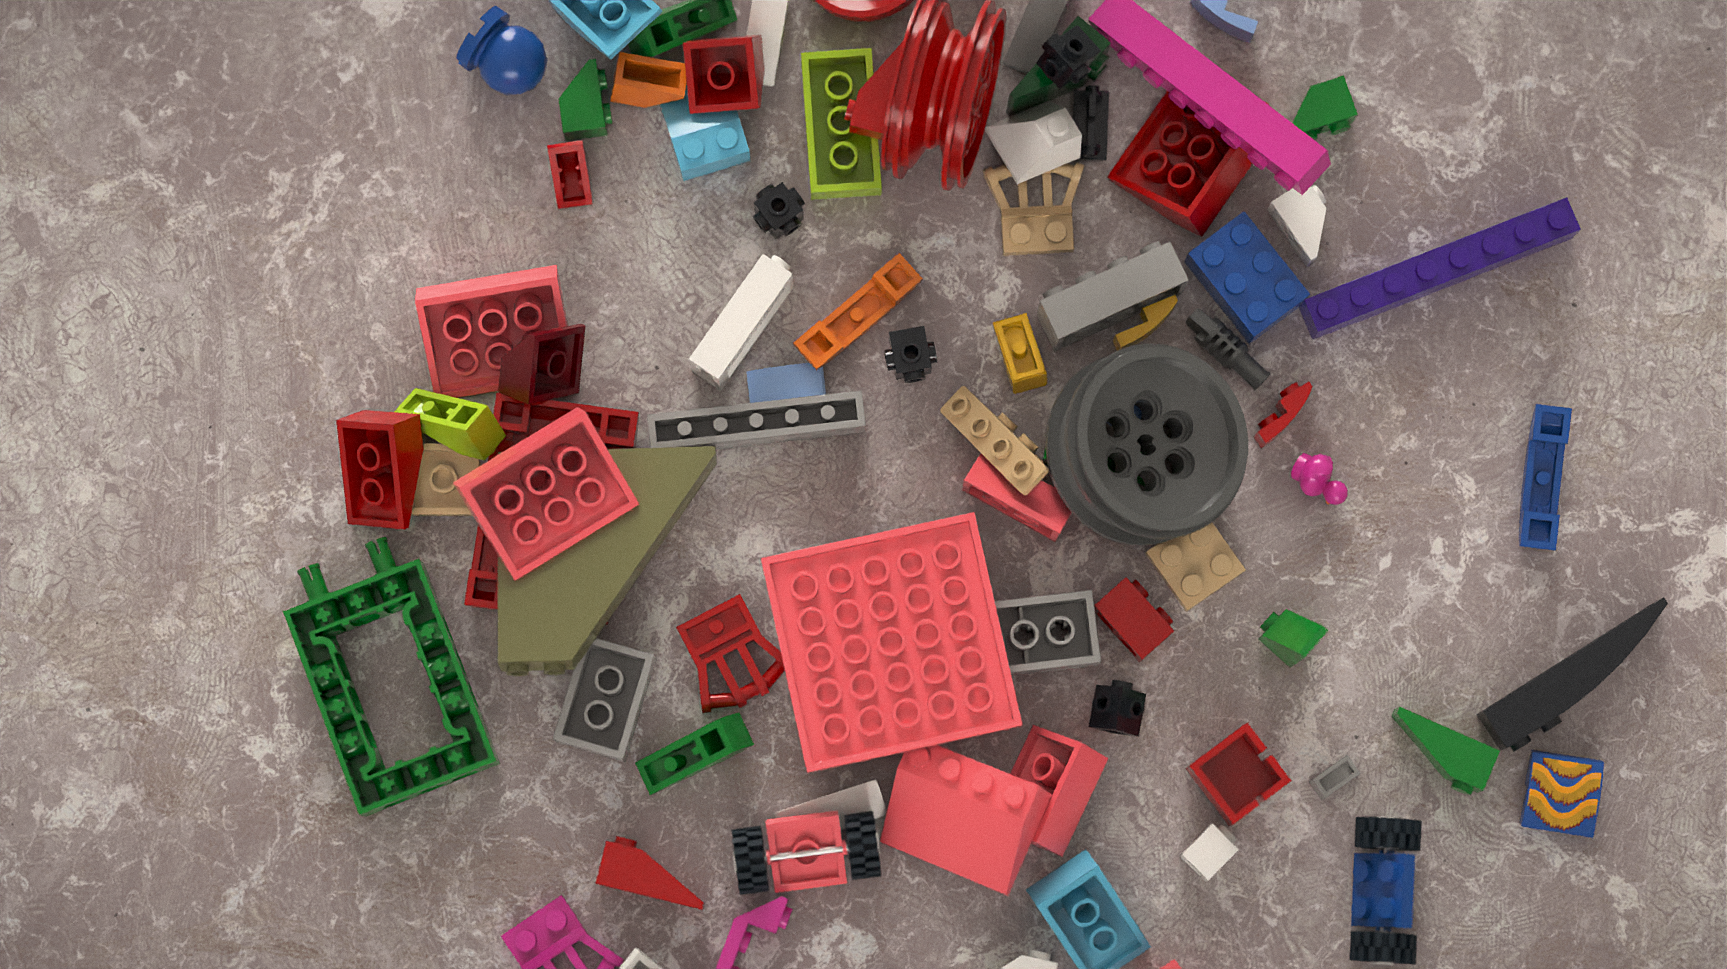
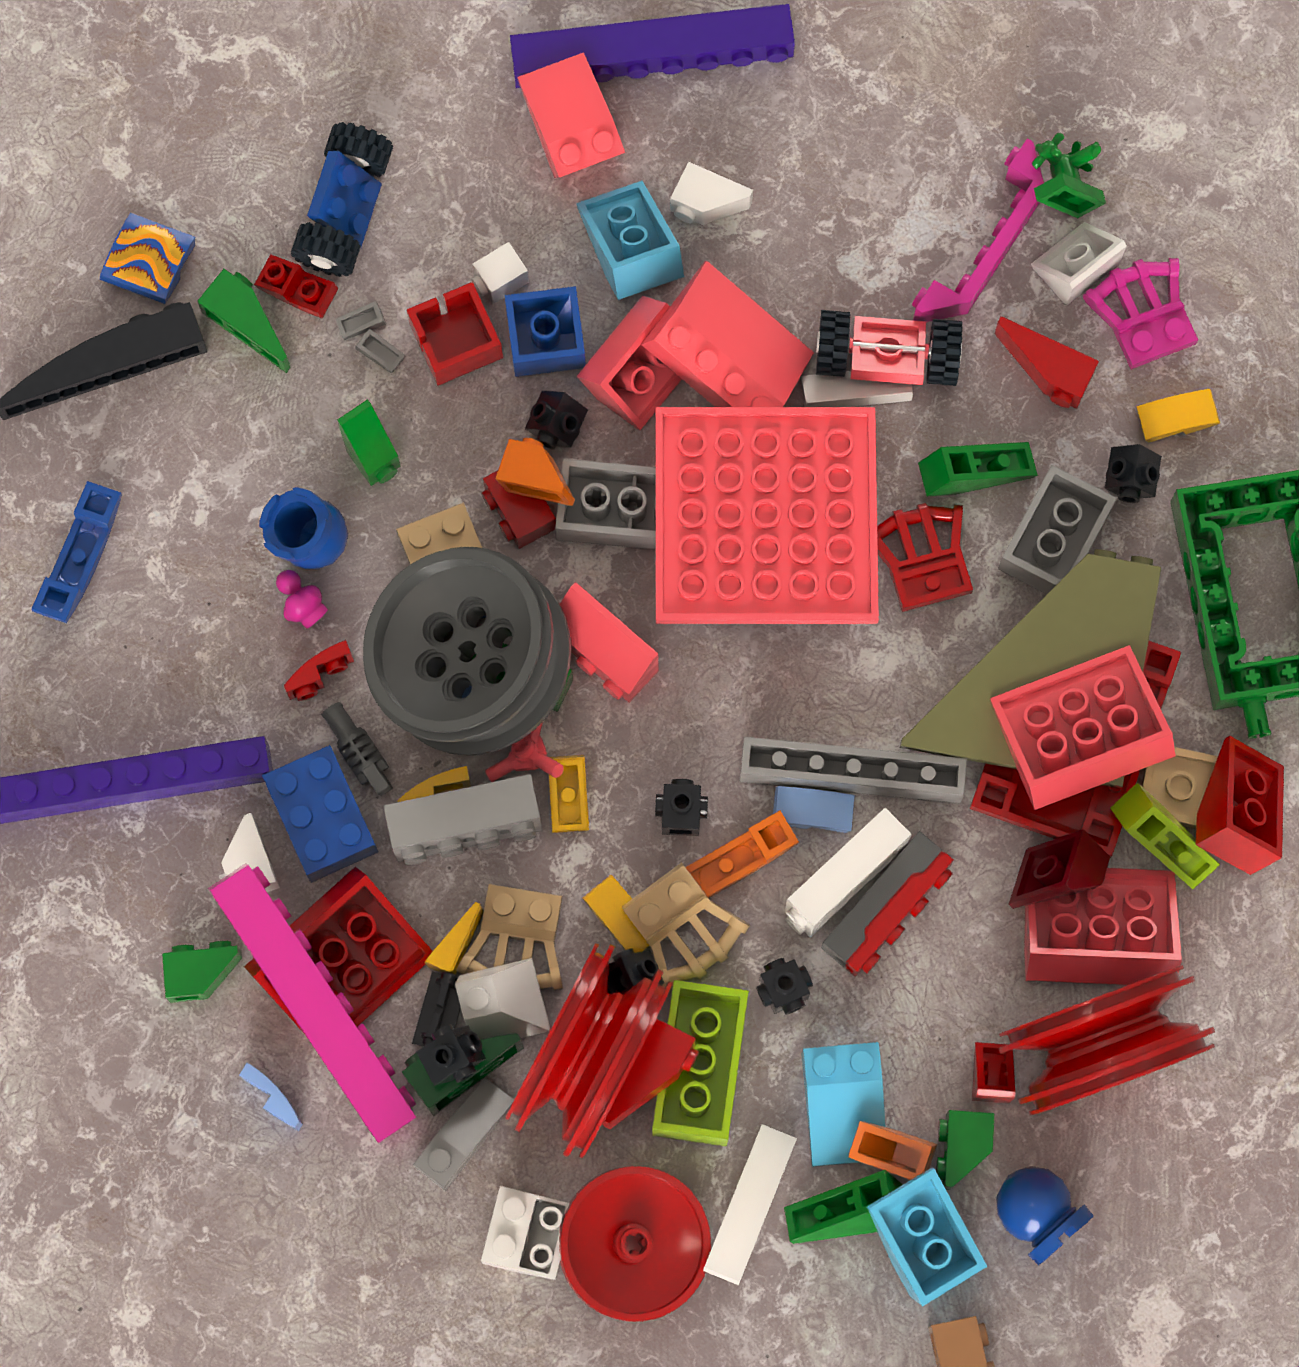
camera: 165 degrees left, 5 degrees down
(471, 198) = (1107, 1041): none -> red wheel
(507, 852) = (1178, 414): none -> yellow slope
(541, 777) = (1133, 472): none -> black brick
(698, 306) = (887, 904): none -> piece
(724, 73) = (812, 1138): red slope -> none
(898, 260) = (669, 905): none -> tan plate
(920, 188) = (629, 969): none -> black brick
(943, 246) = (607, 903): none -> yellow slope
(996, 440) = (613, 695): tan bracket -> none
(1063, 370) = (526, 755): none -> coral piece
(1094, 175) = (455, 944): none -> yellow slope
(1125, 637) = (532, 472): none -> orange slope
(1150, 796) = (545, 331): none -> blue slope
(1307, 750) = (379, 351): none -> light grey piece
(1333, 536) = (303, 529): none -> blue tile
(1407, 798) = (295, 286): none -> red slope

